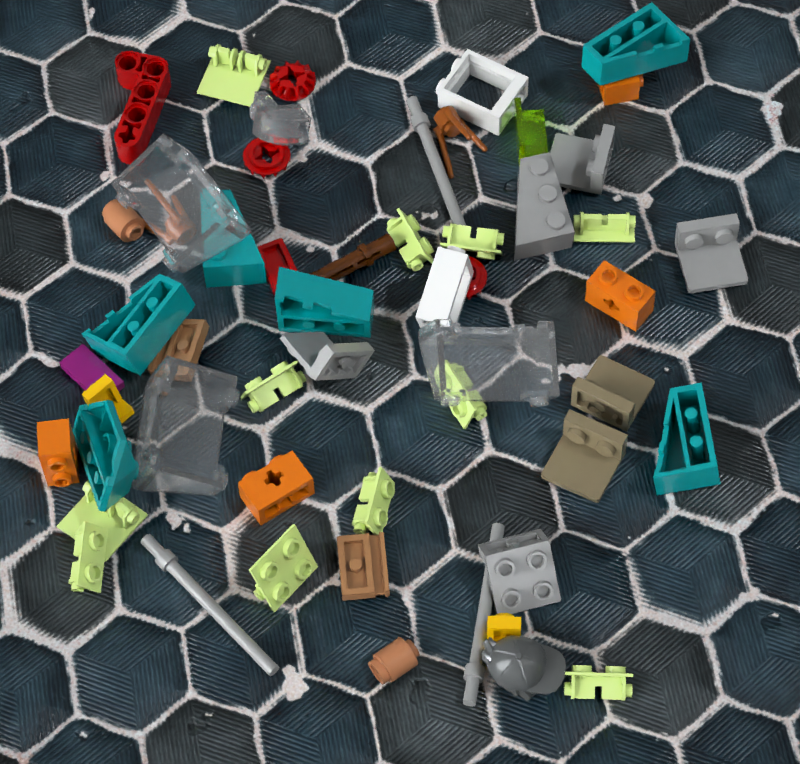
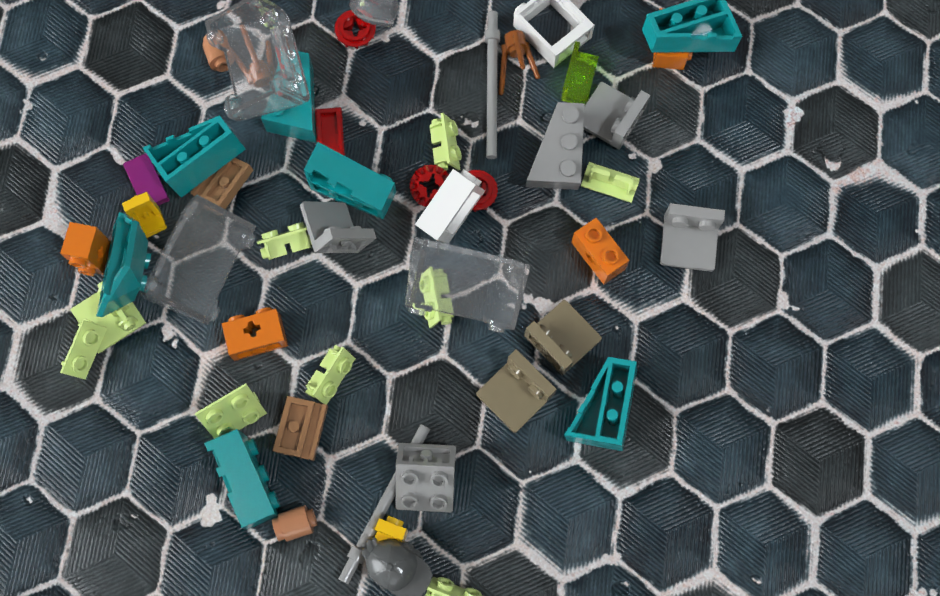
camera: 15 degrees right, 15 degrees up
(169, 562) = (147, 371): light grey bar -> none
(320, 629) = (244, 478): none -> teal wedge
(362, 256) = (390, 147): reddish brown pin -> none
(401, 296) = (423, 175): none -> red gear
(484, 244) = (503, 167): yellowish green hinge -> none

